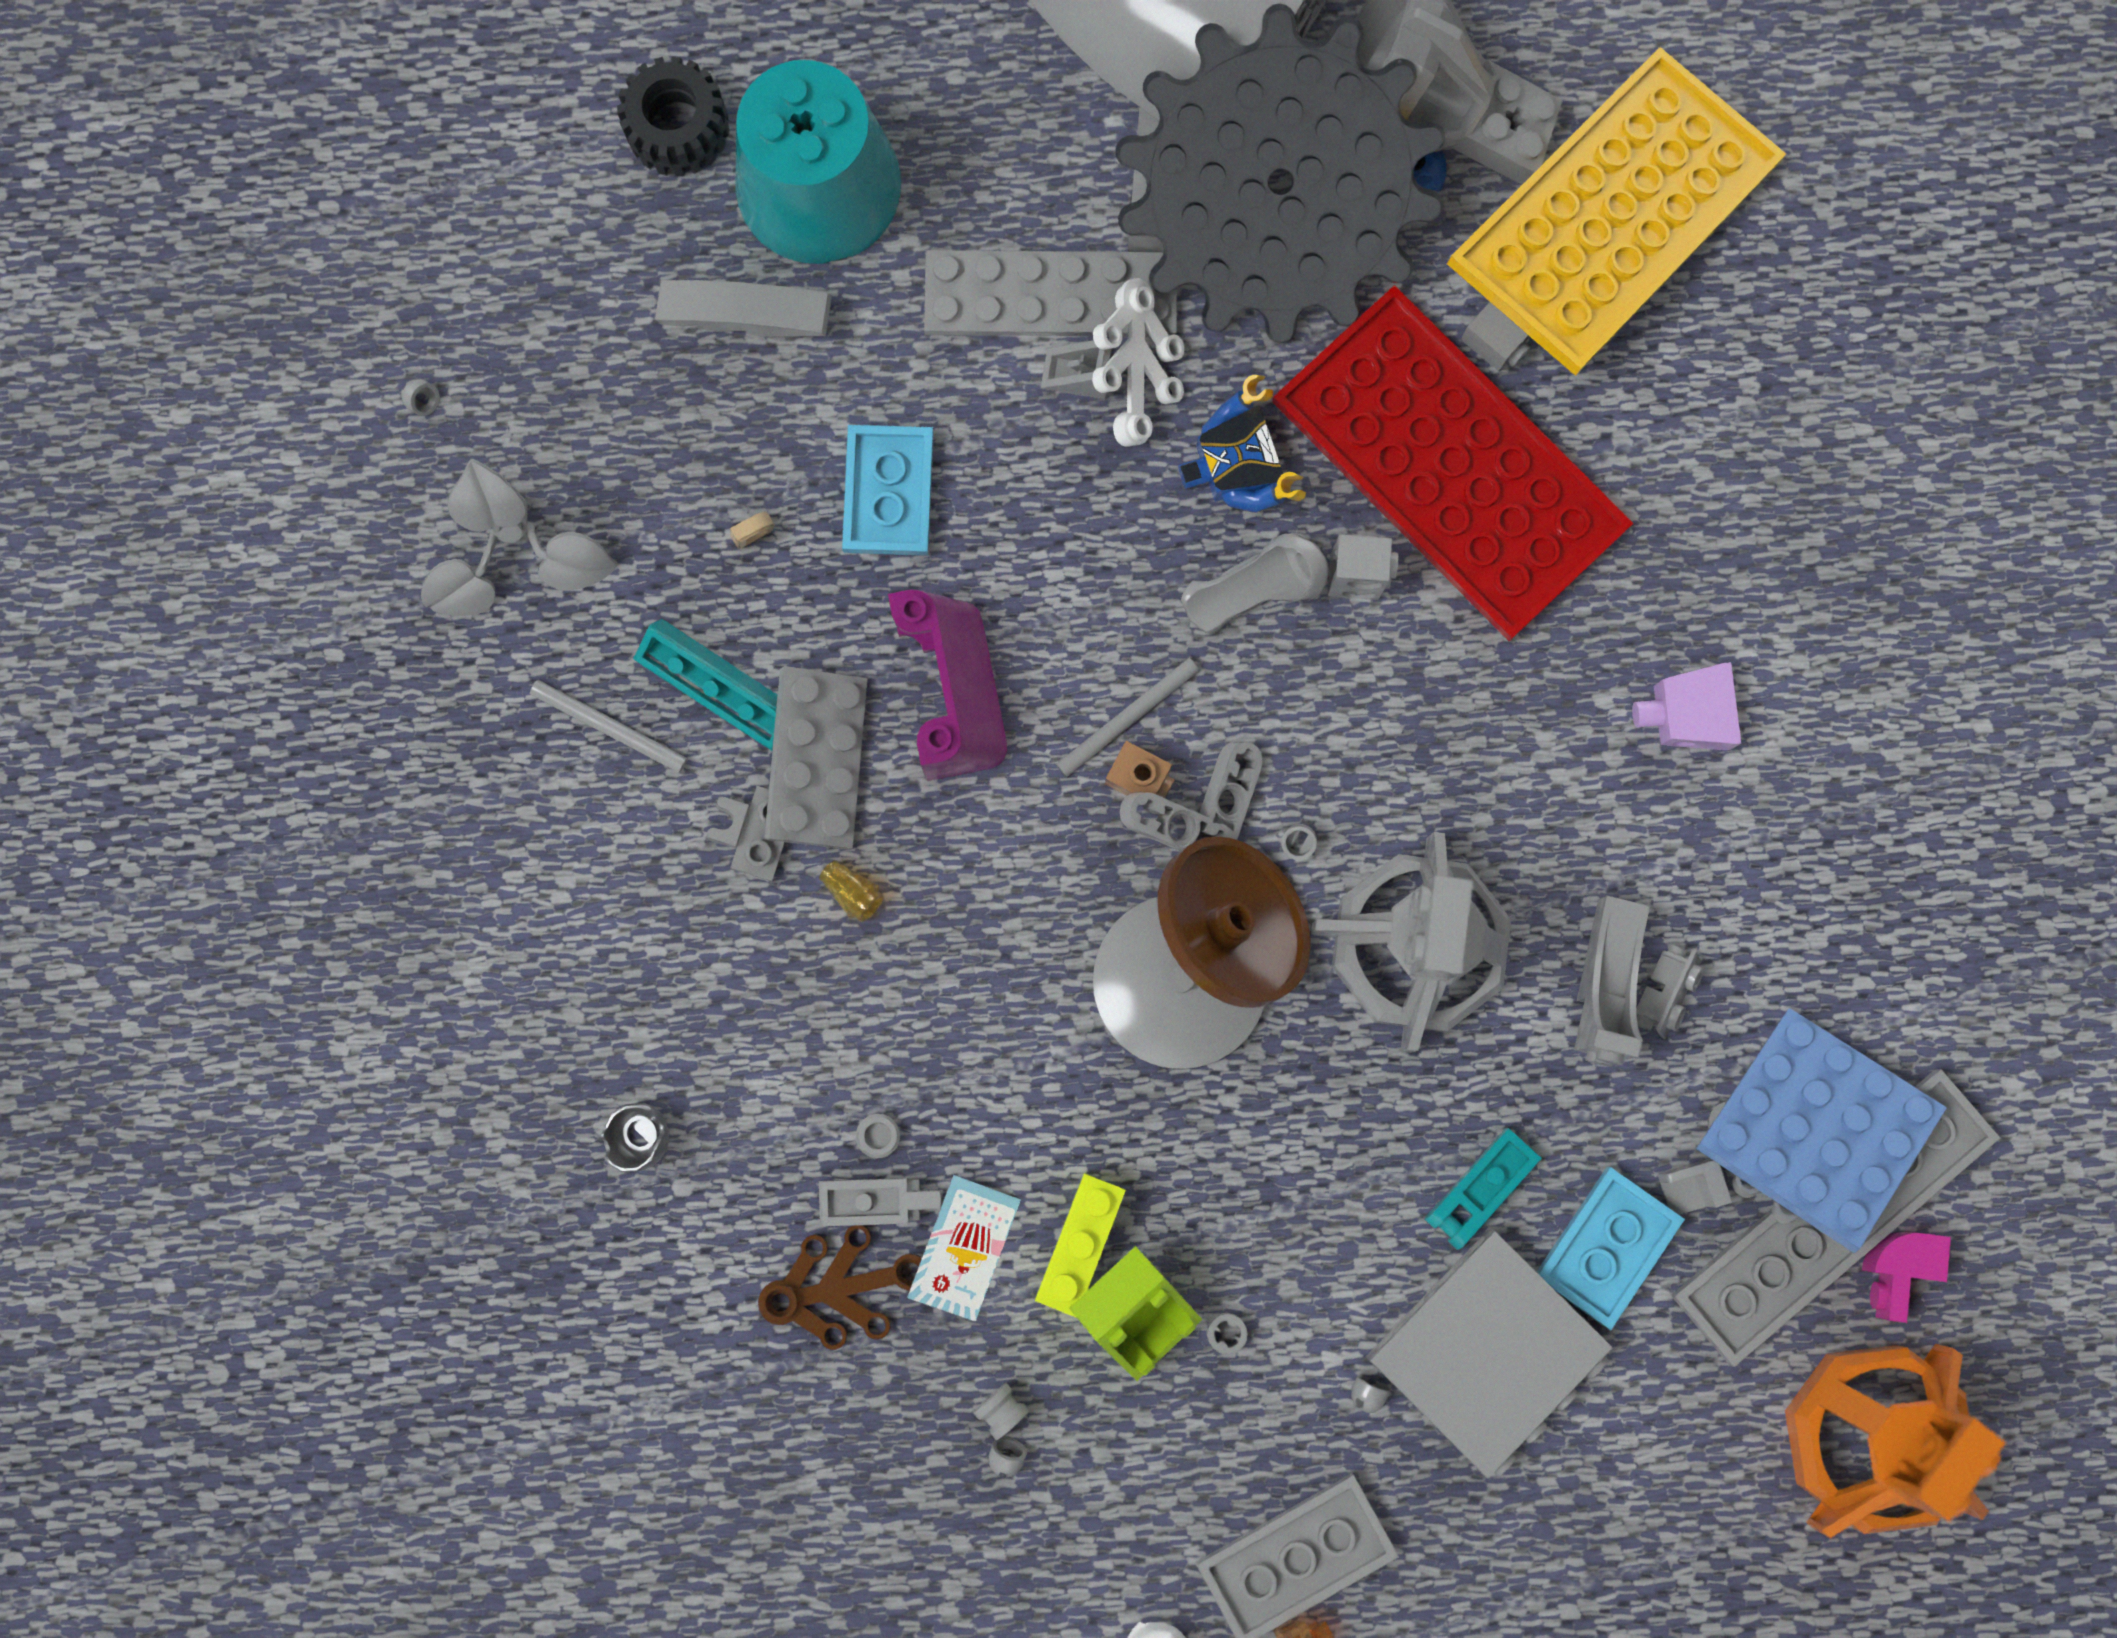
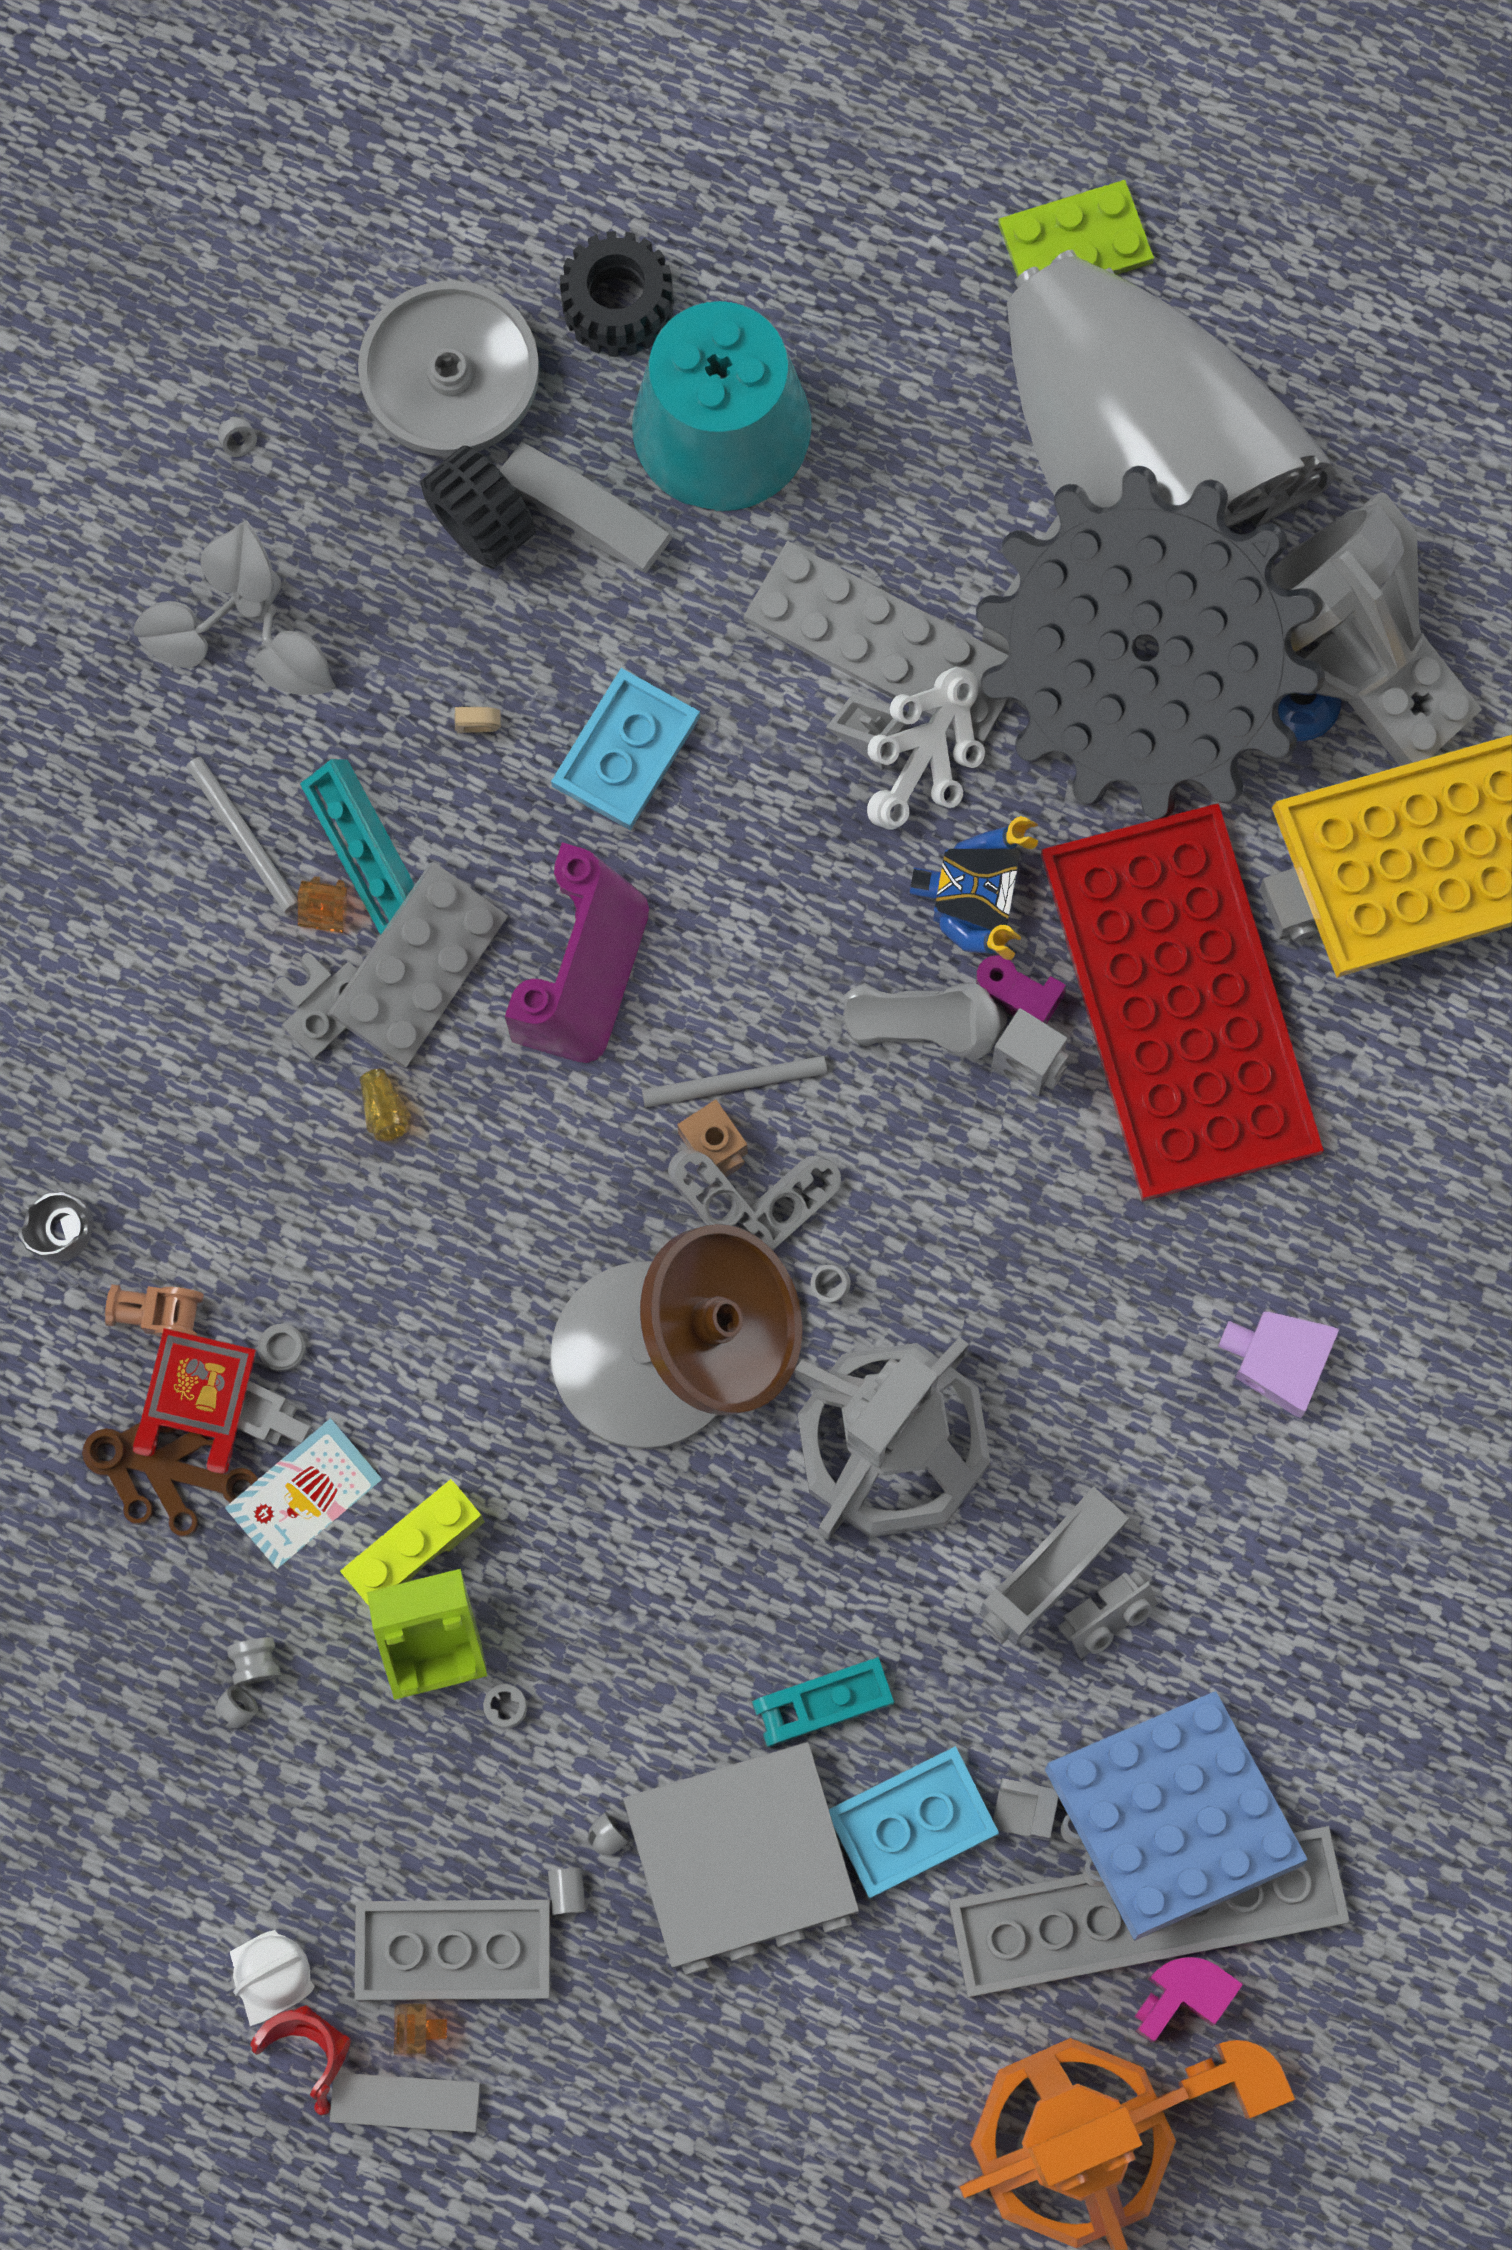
camera: 30 degrees right, 5 degrees down
(567, 248) = (448, 368): none -> light grey dish
(657, 350) = (478, 506): none -> black tyre
(709, 750) = (322, 905): none -> clear orange tile
(759, 1161) = (158, 1309): none -> nougat connector
(830, 1211) = (196, 1389): none -> red flag
(1318, 523) = (1018, 991): none -> magenta leg
(1362, 1459) = (566, 1891): none -> light grey hinge
(1985, 1303) = (1251, 2071): none -> orange brick

